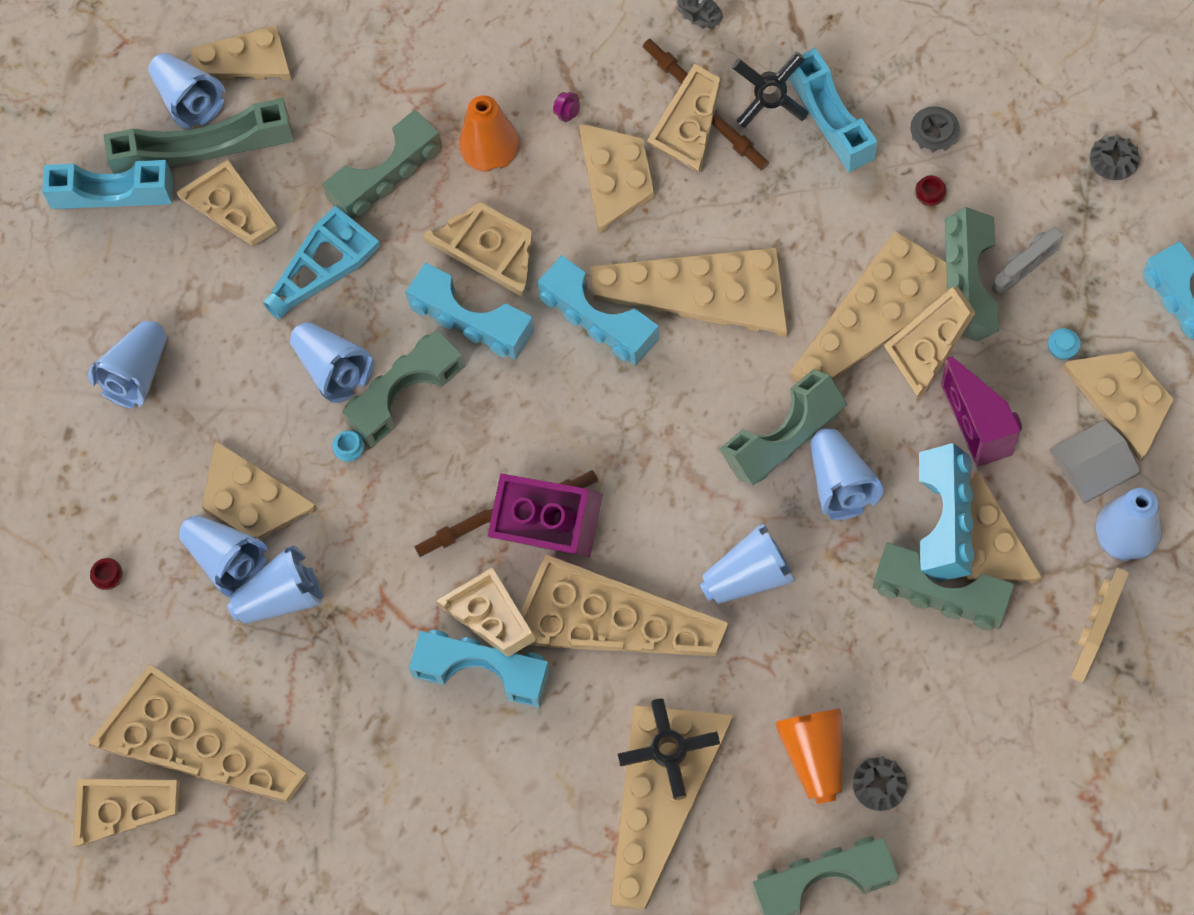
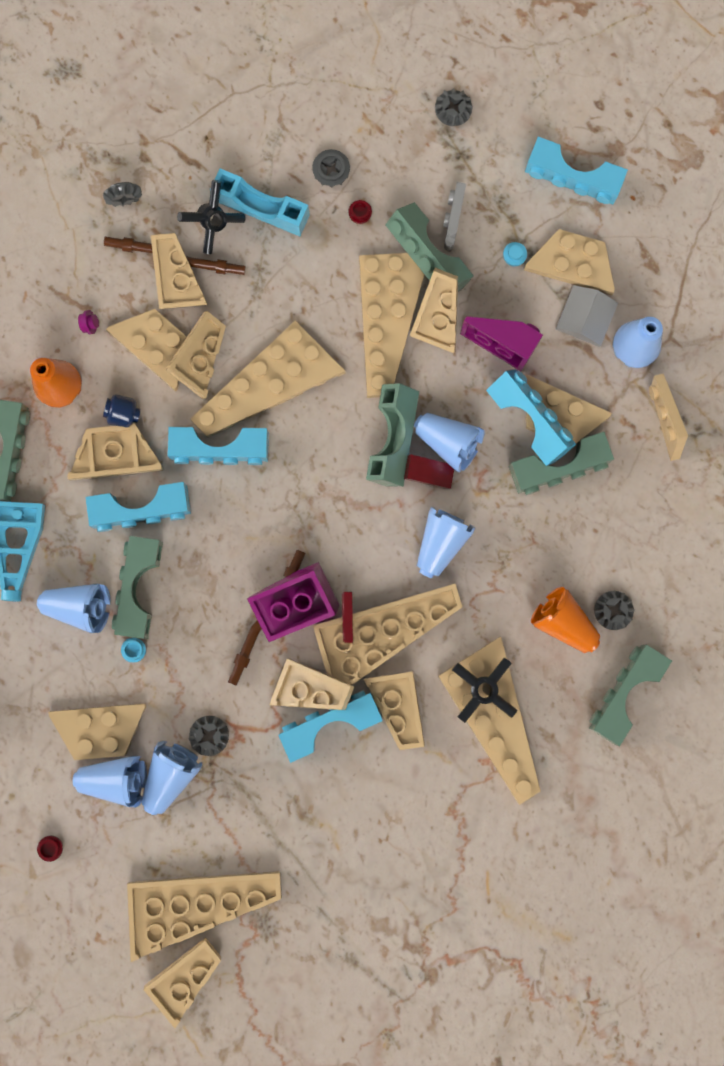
camera: 45 degrees left, 15 degrees up
(361, 594) = (220, 737): none -> dark grey gear
(528, 209) = (121, 411): none -> dark blue head
(567, 705) = (399, 705): none -> tan wing
(586, 568) = (347, 617): none -> dark red tile
(649, 210) = (197, 354): none -> tan wing
(792, 491) = (429, 472): none -> dark red tile

